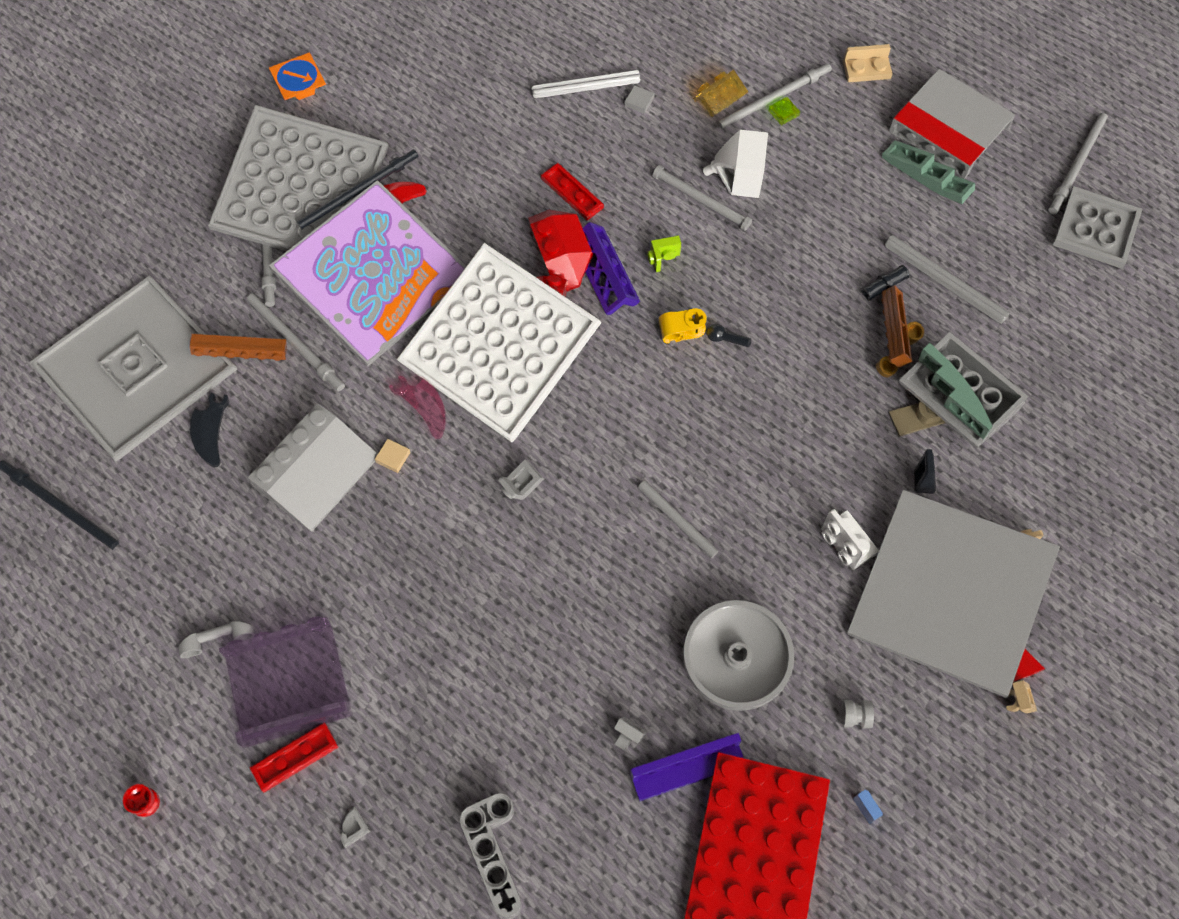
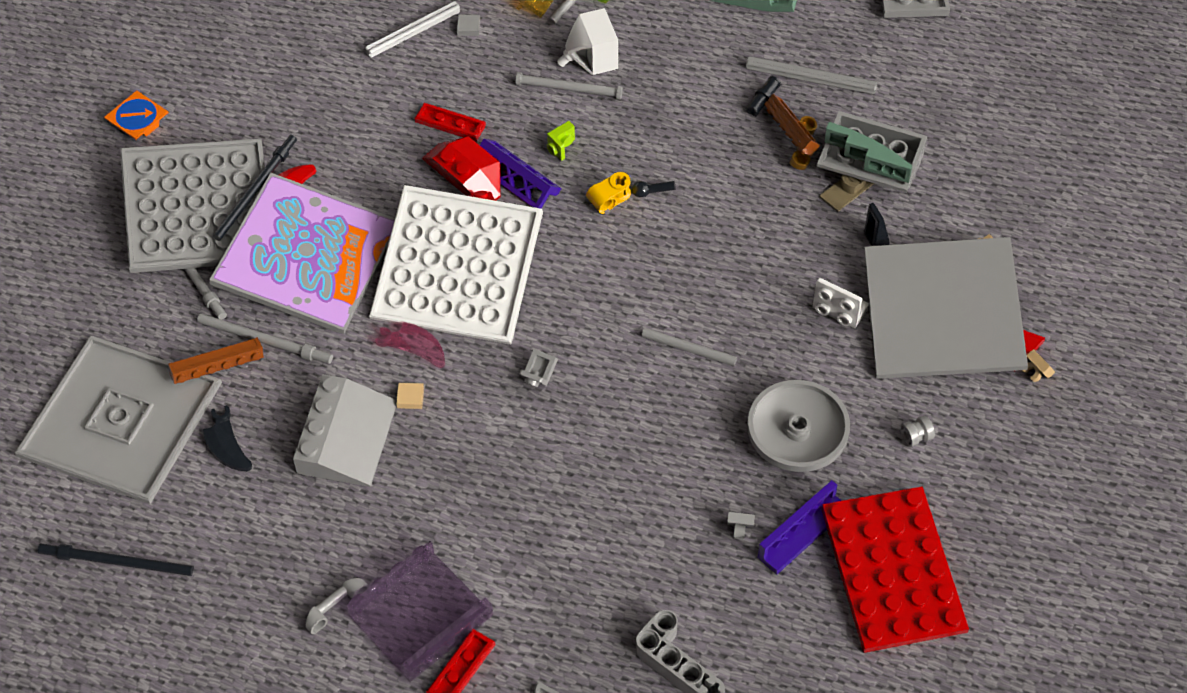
camera: 25 degrees left, 10 degrees down
(867, 806) = (962, 495): medium blue tile -> none

